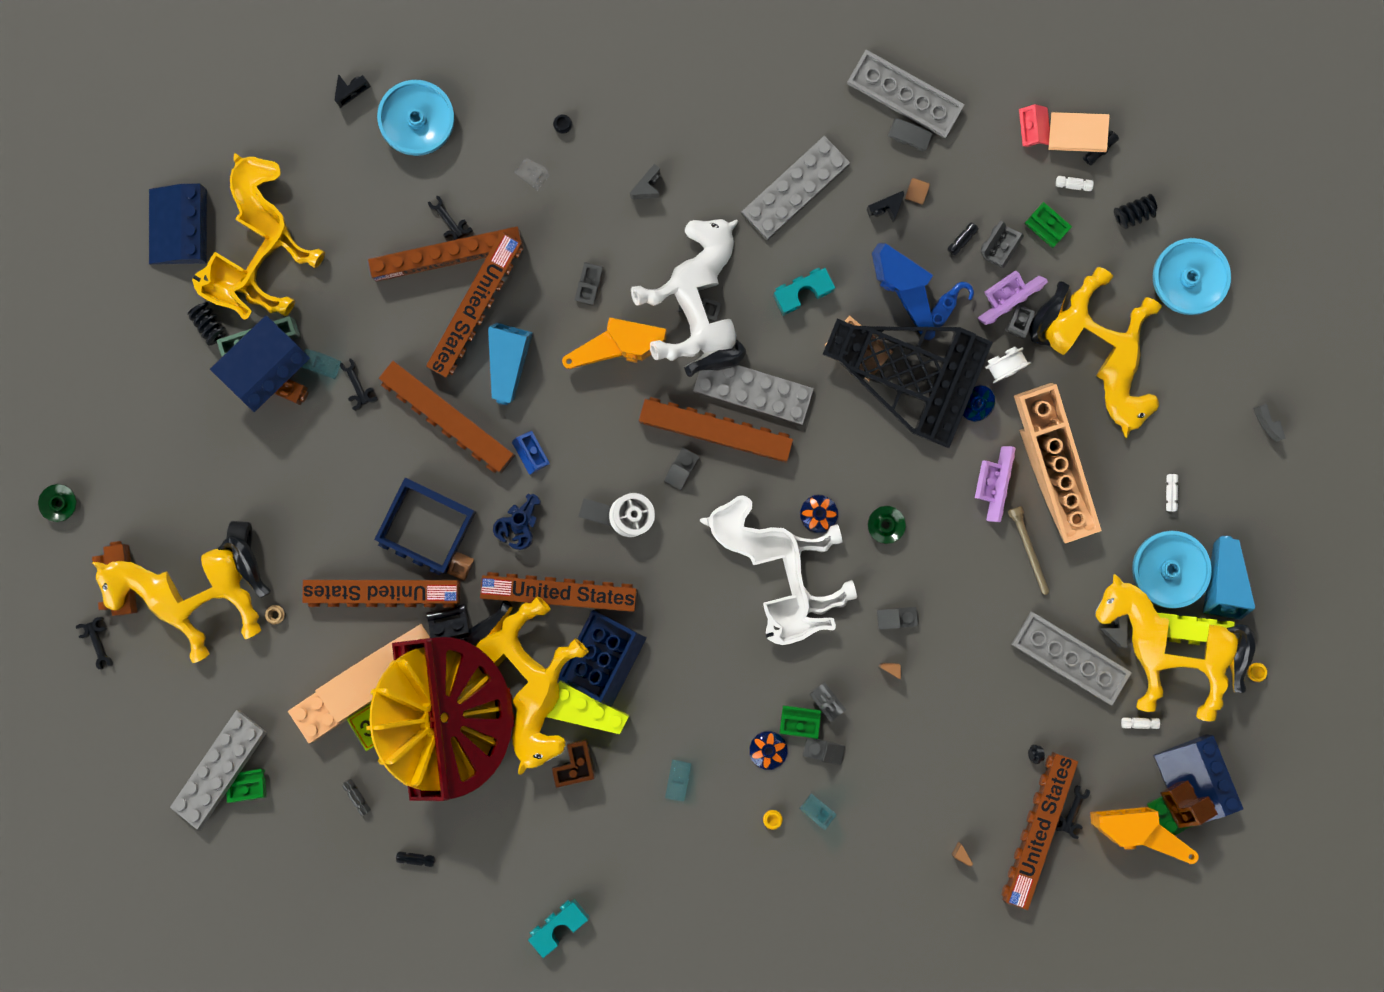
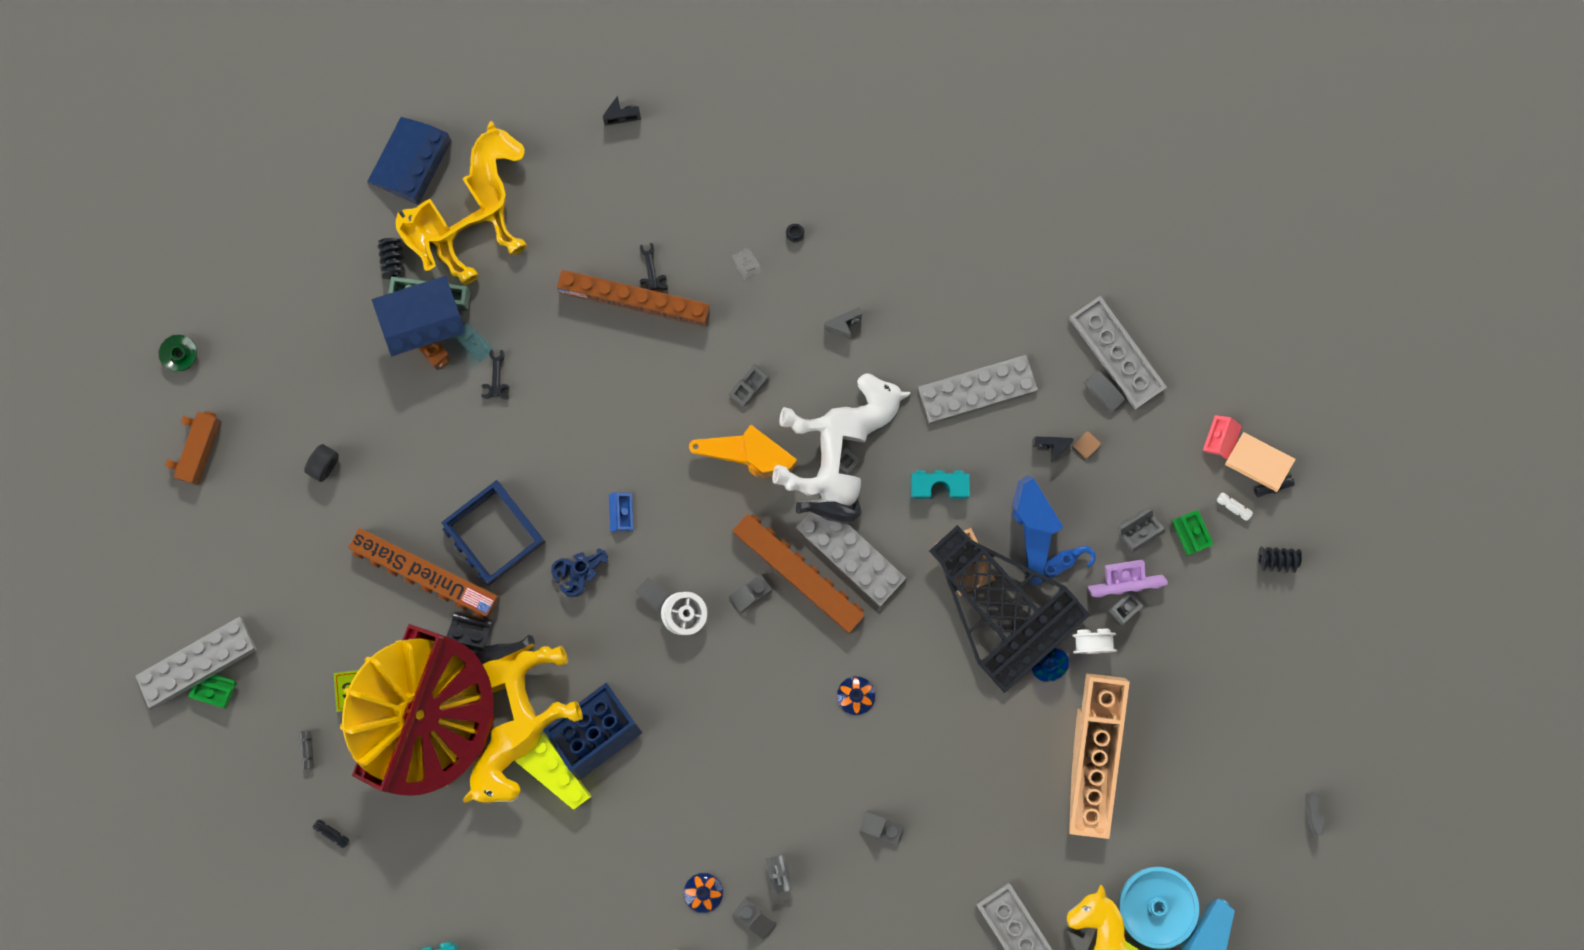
camera: 20 degrees right, 5 degrees down
(91, 629) = (148, 480): black bar -> none
(223, 571) = (292, 486): yellow animal -> none
(269, 614) = (312, 547): tan plate -> none
(346, 692) = (346, 648): light nougat slope -> none
(415, 117) = (666, 165): medium azure dish -> none
(447, 417) = (561, 443): dark orange brick -> none
(460, 565) = (506, 584): medium nougat slope -> none
(474, 303) = (635, 355): dark orange brick -> none
(507, 357) = (642, 416): dark azure slope -> none
(558, 593) = (582, 652): dark orange brick -> none
(579, 769) = (519, 824): reddish brown brick -> none
(678, 780) = (606, 879): clear light blue slope -> none
(773, 544) = (801, 703): white animal -> none
(800, 721) = (745, 880): green plate -> none
(892, 668) = (854, 872): medium nougat slope -> none
(896, 524) = (922, 740): dark green dish -> none
(963, 238) = (1108, 507): black axle -> none
(994, 482) = (1031, 745): lavender bracket -> none
(1017, 515) = (1038, 786): dark tan piece -> none
(1118, 370) = (1204, 690): yellow animal -> none
(1172, 493) = (1192, 835): white axle -> none
(1191, 276) = (1303, 643): medium azure dish -> none

